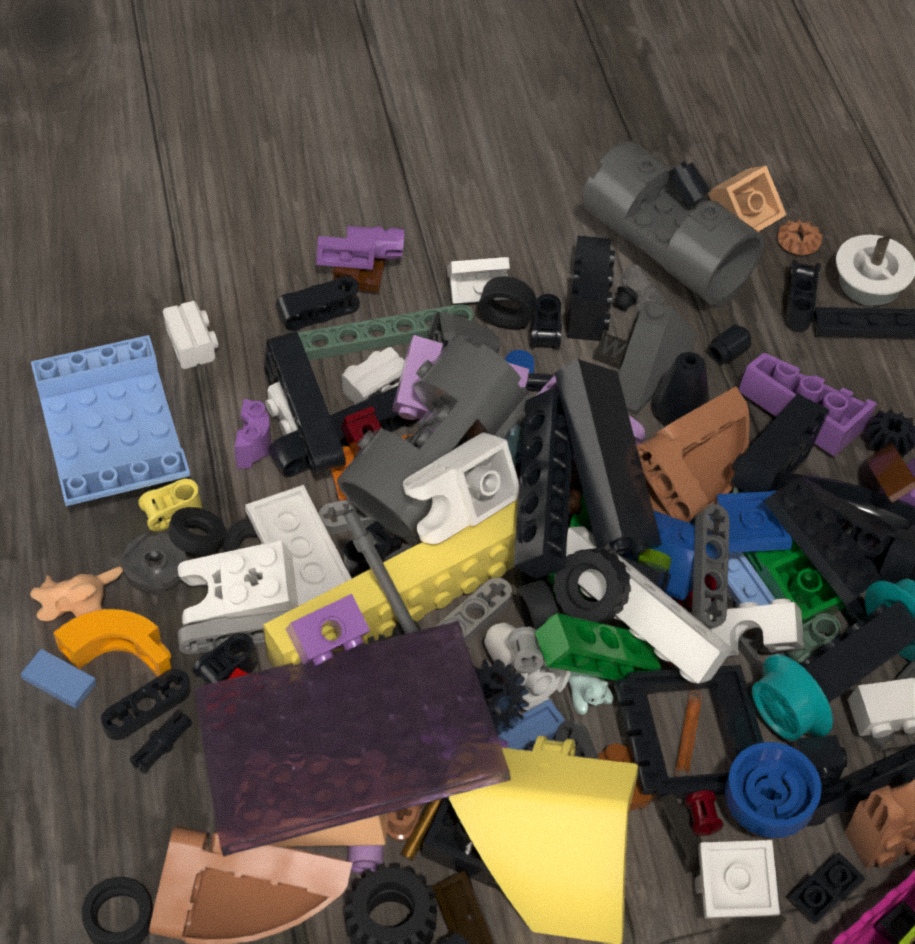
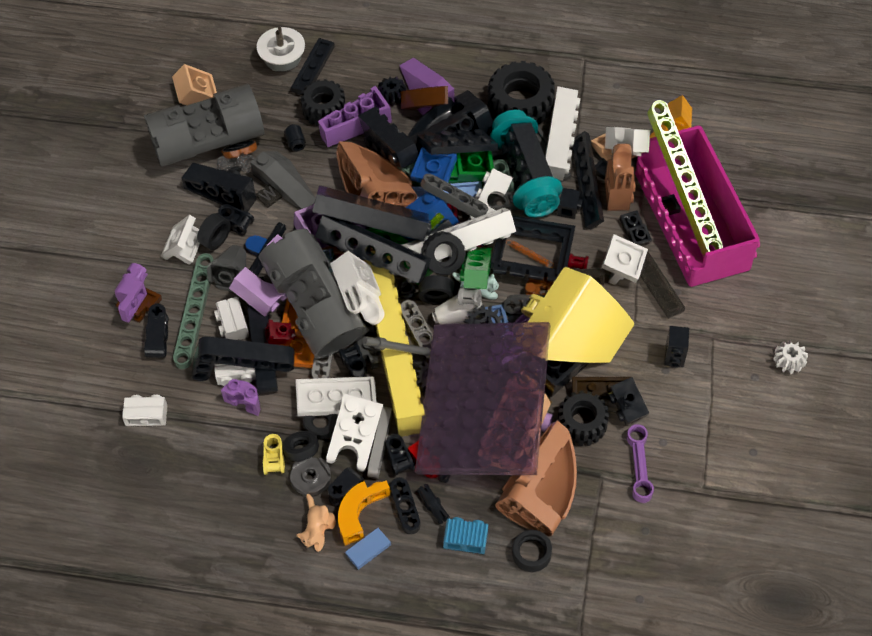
camera: 65 degrees left, 5 degrees up
(108, 420) = (196, 475): light blue slope -> none
(114, 805) = (465, 535): none -> dark azure brick
(157, 607) = (342, 485): none -> black piece
(342, 616) = (419, 384): medium lavender brick -> none
(666, 284) = (235, 150): none -> tile
(682, 389) = (322, 170): black cone -> none
(689, 182) = (191, 101): black door -> none
(766, 806) = (581, 232): blue piece -> none
(792, 243) = (235, 79): nougat gear -> none
(801, 295) = (276, 90): black piece -> none
(816, 338) = (321, 92): none -> black tyre

